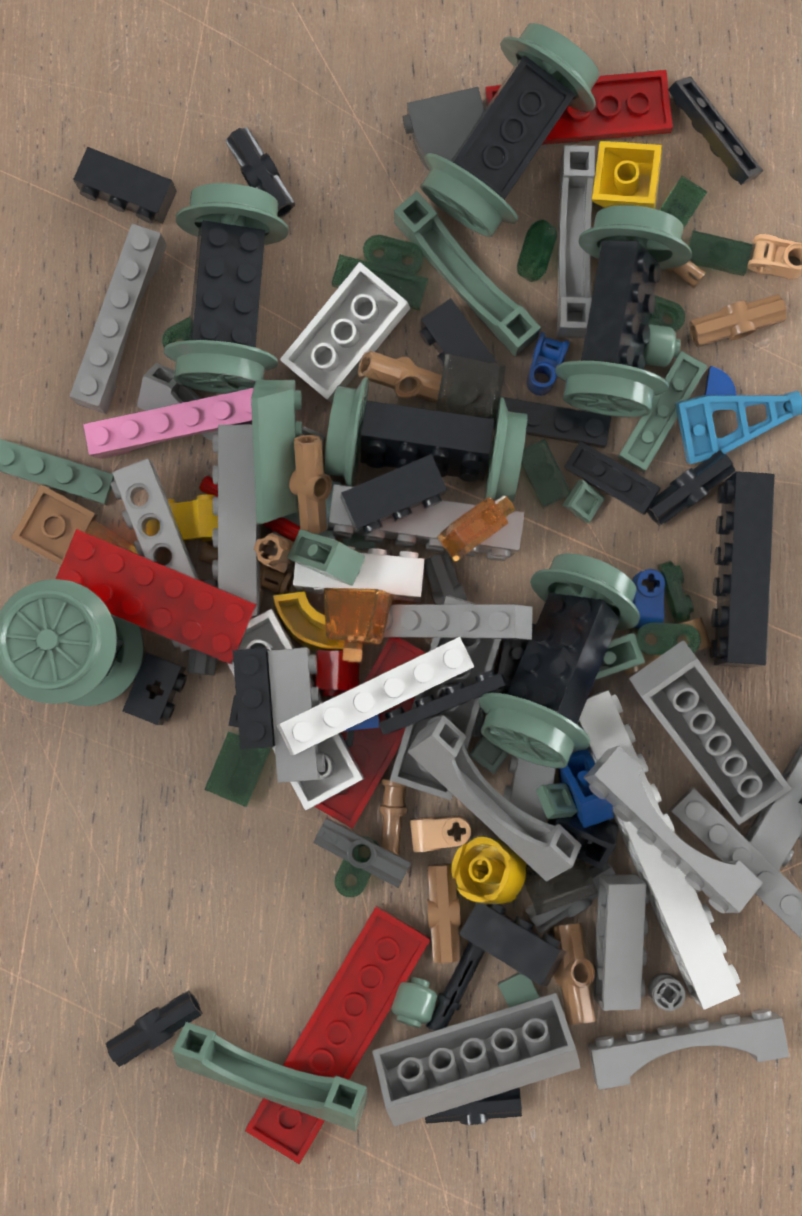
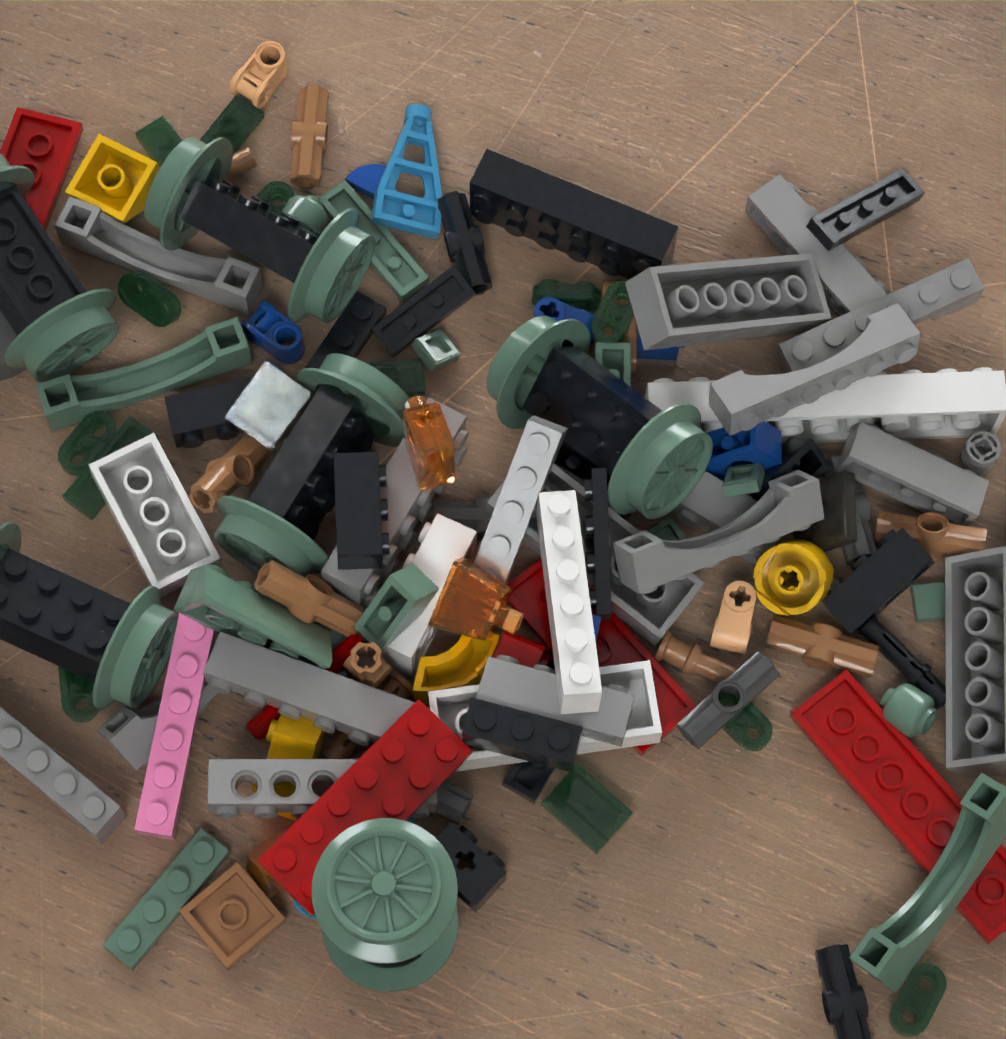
camera: 75 degrees left, 15 degrees down
(179, 1087) = (916, 1001): none -> clear green plate
(715, 130) = (112, 83): black plate -> none

